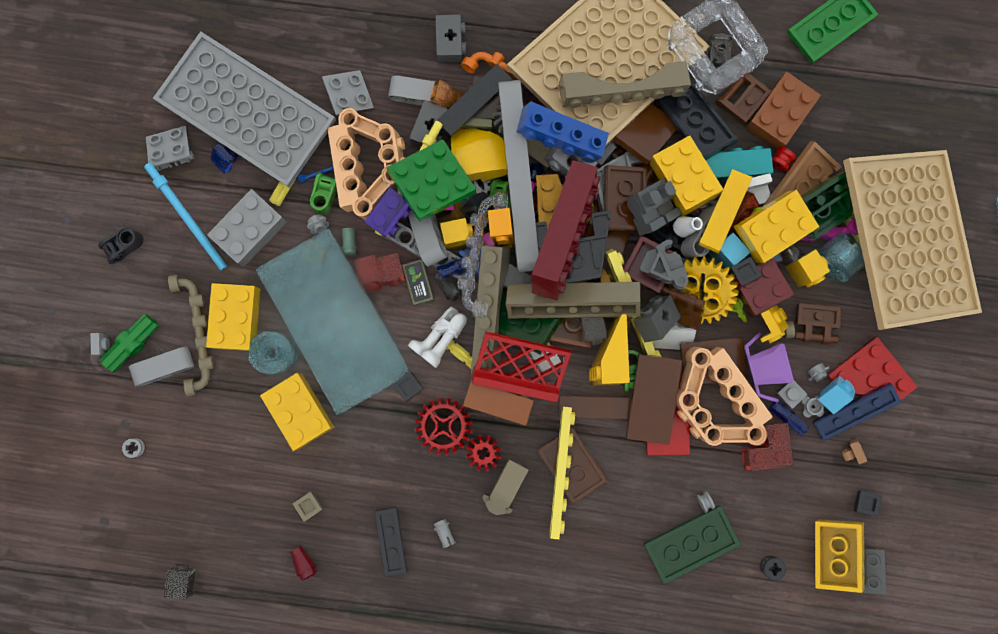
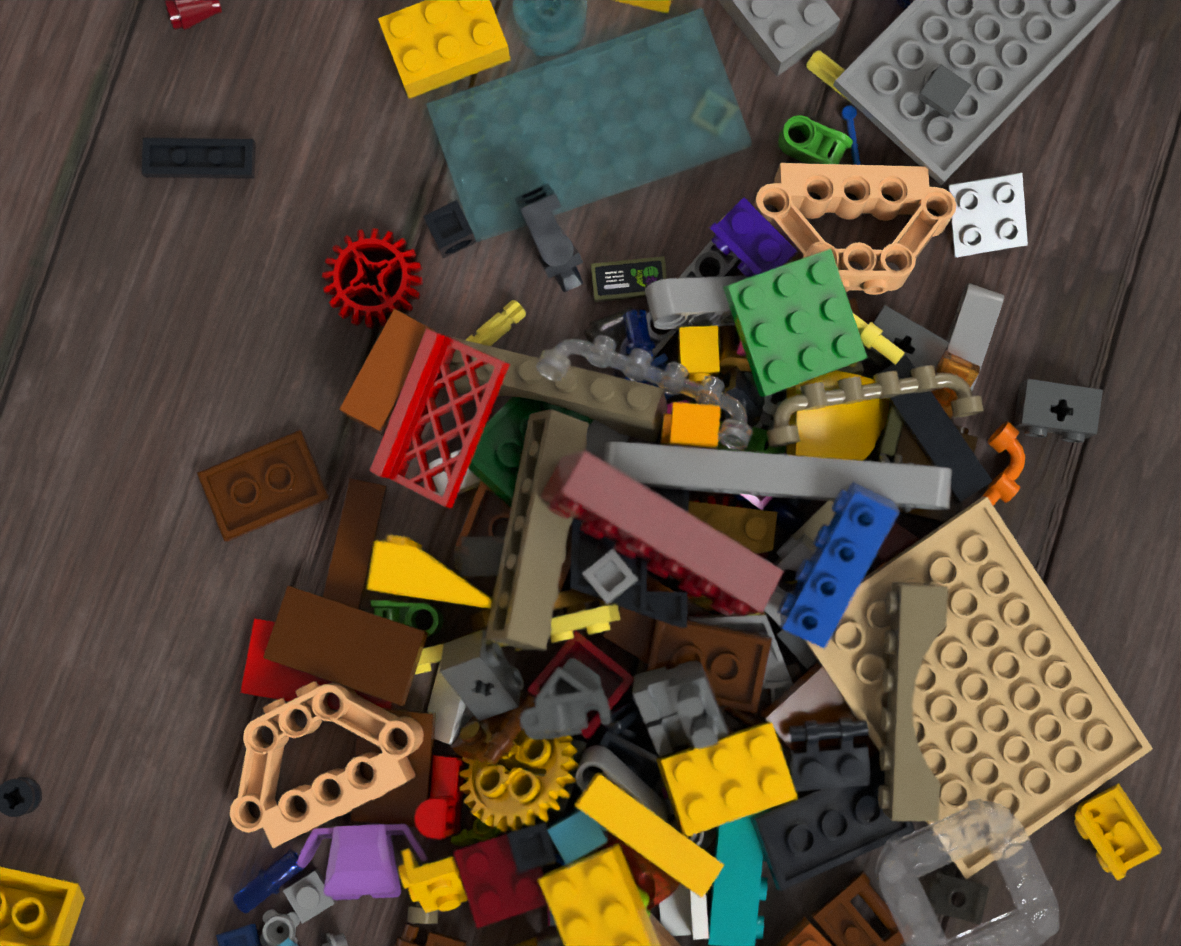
camera: 110 degrees right, 0 degrees up
(283, 124) = (944, 91): none -> dark grey tile
(307, 506) = (284, 31): dark tan plate -> none
(317, 224) = (761, 124): light grey plate -> none
(349, 246) = (721, 173): sand green pin -> none
(380, 271) = (658, 211): clear red brick -> none
(411, 324) = (557, 251): none -> black hips
(444, 533) = (196, 248): light grey pin -> none
(448, 326) = (541, 319): white piece -> none
(463, 144) = (853, 391): none -> dark tan bar
(479, 446) = (301, 345): red gear -> none
(505, 488) = (248, 365): dark tan piece -> none
(561, 482) = (267, 466): light yellow plate -> none
(592, 255) = (610, 576): none -> light grey plate
(666, 122) = (829, 765): none -> black plate
(686, 226) = (636, 760): white cone -> none
(692, 544) = (87, 664): dark green plate -> none
(705, 501) = (154, 702): light grey bush -> none
(734, 329) = (442, 812): none -> red brick
(773, 453) = (210, 838): clear red brick -> none

